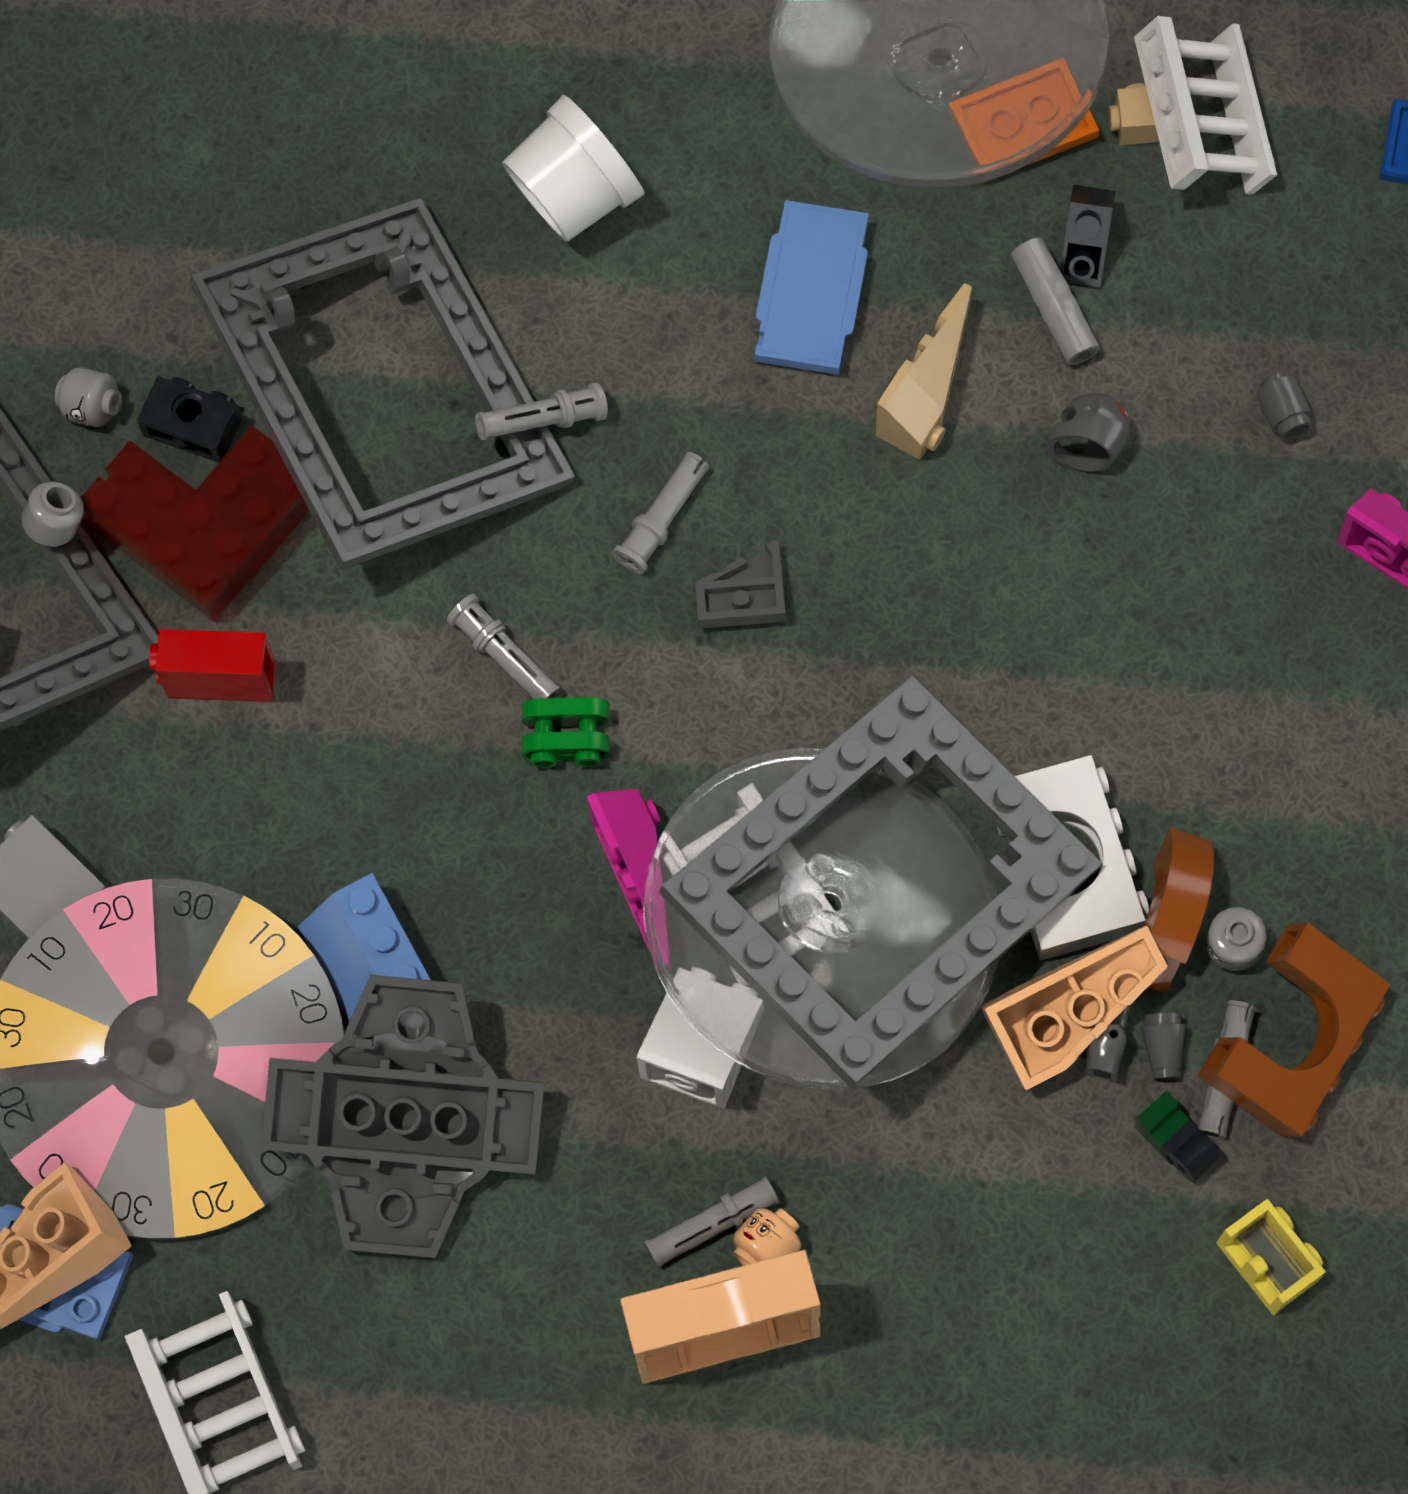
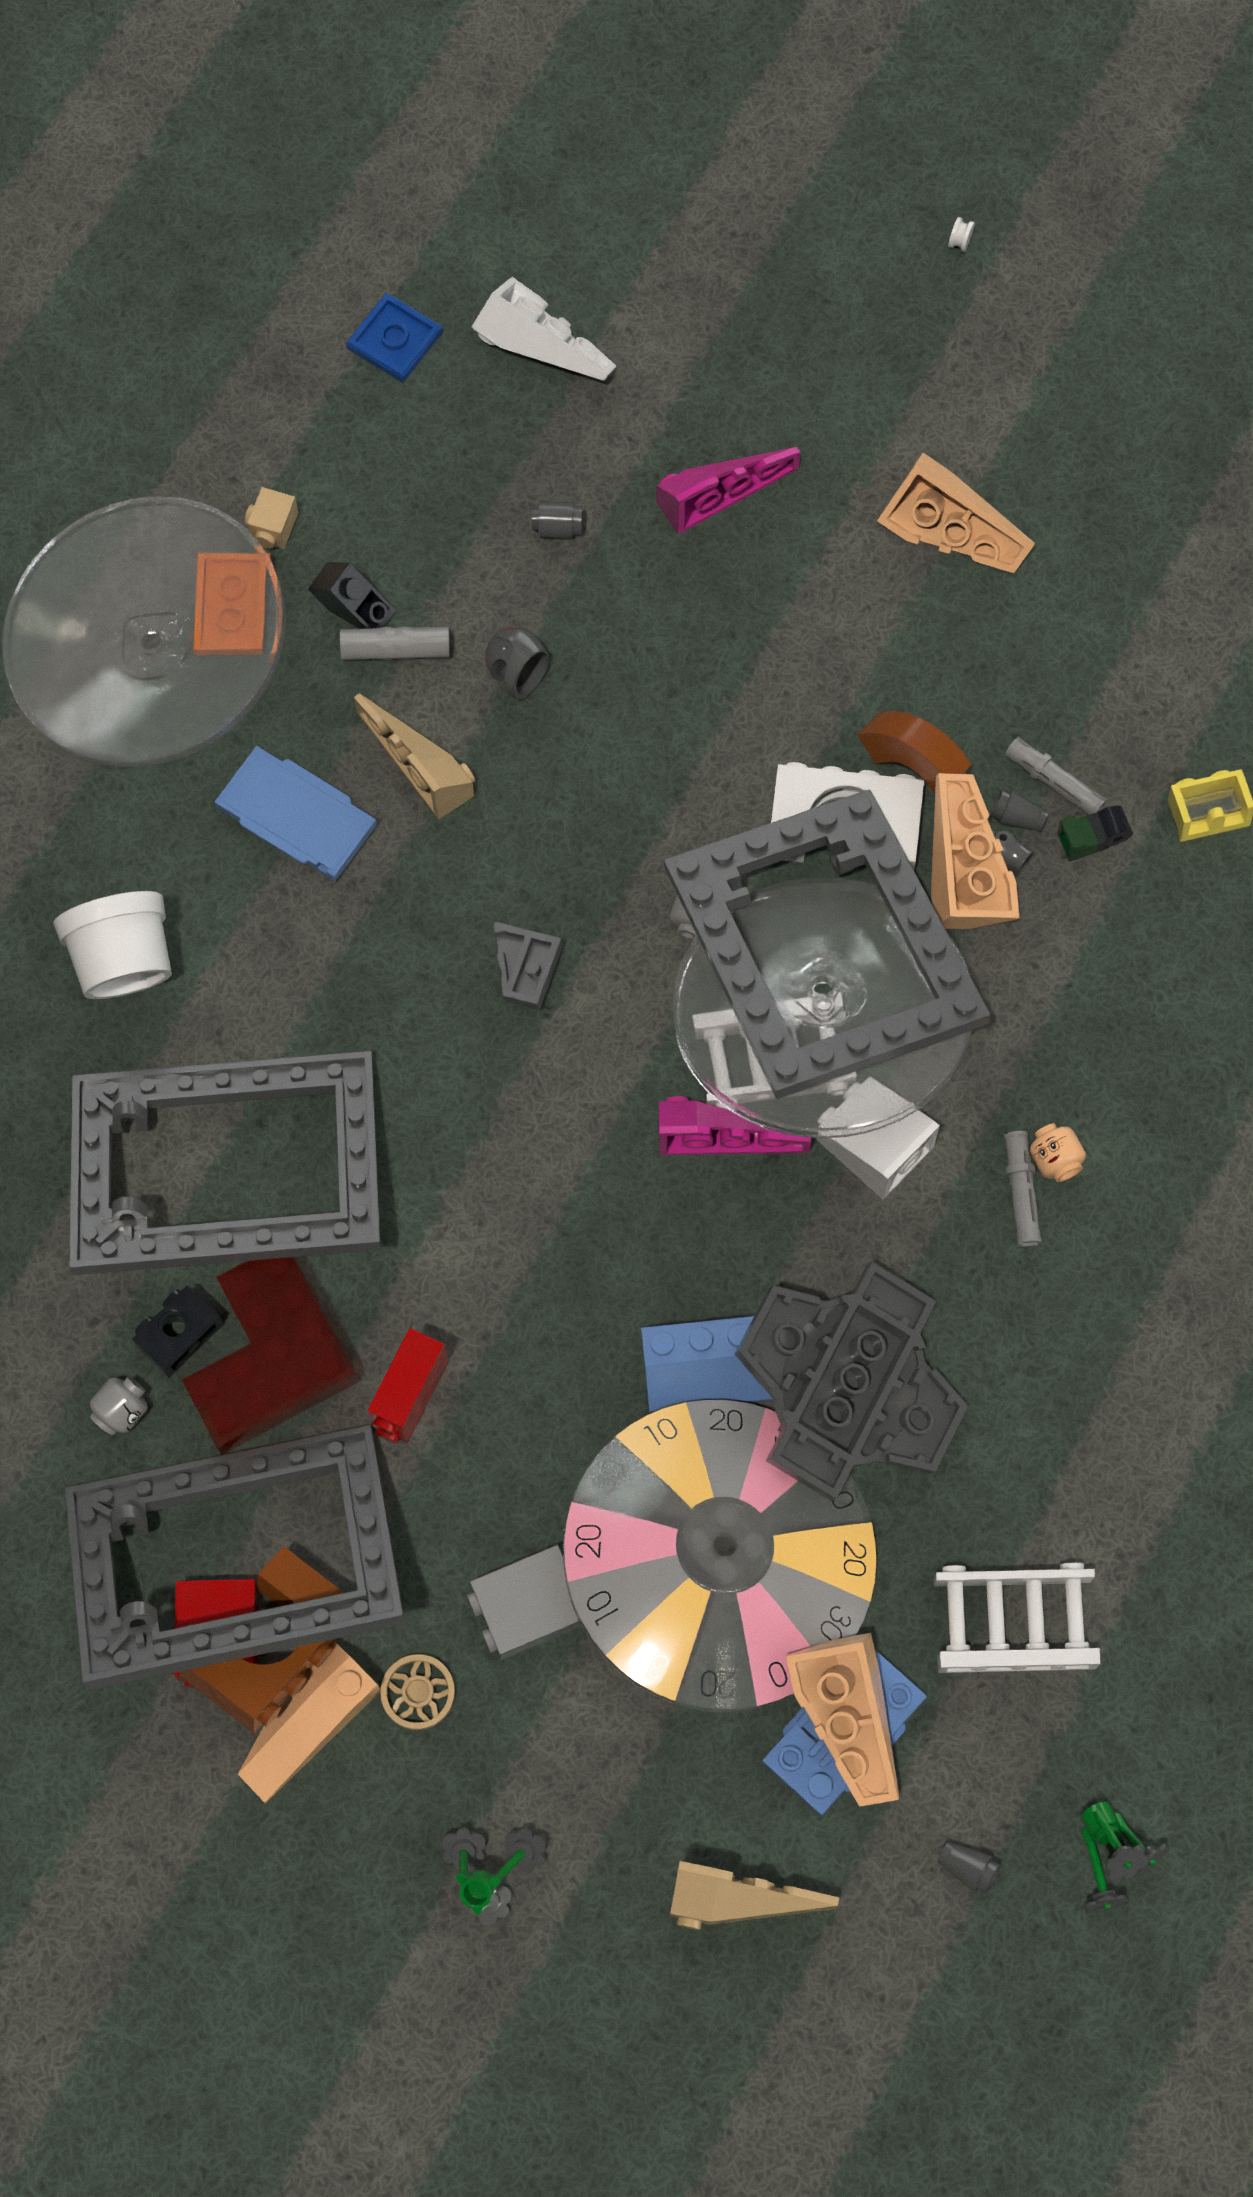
camera: 70 degrees left, 0 degrees up
(52, 514) = (220, 1464): light grey head -> none
(490, 637) = (475, 1168): light grey pin -> none
(560, 409) = (315, 1025): light grey pin -> none
(583, 746) = (589, 1161): green brick -> none
(650, 529) = (441, 1012): light grey pin -> none
(723, 1316) = (1120, 1195): light nougat tile -> none
(1174, 112) = (288, 486): white fence -> none
(1236, 939) = (964, 724): light grey head -> none
(1345, 1001) = (1042, 674): dark orange arch -> none

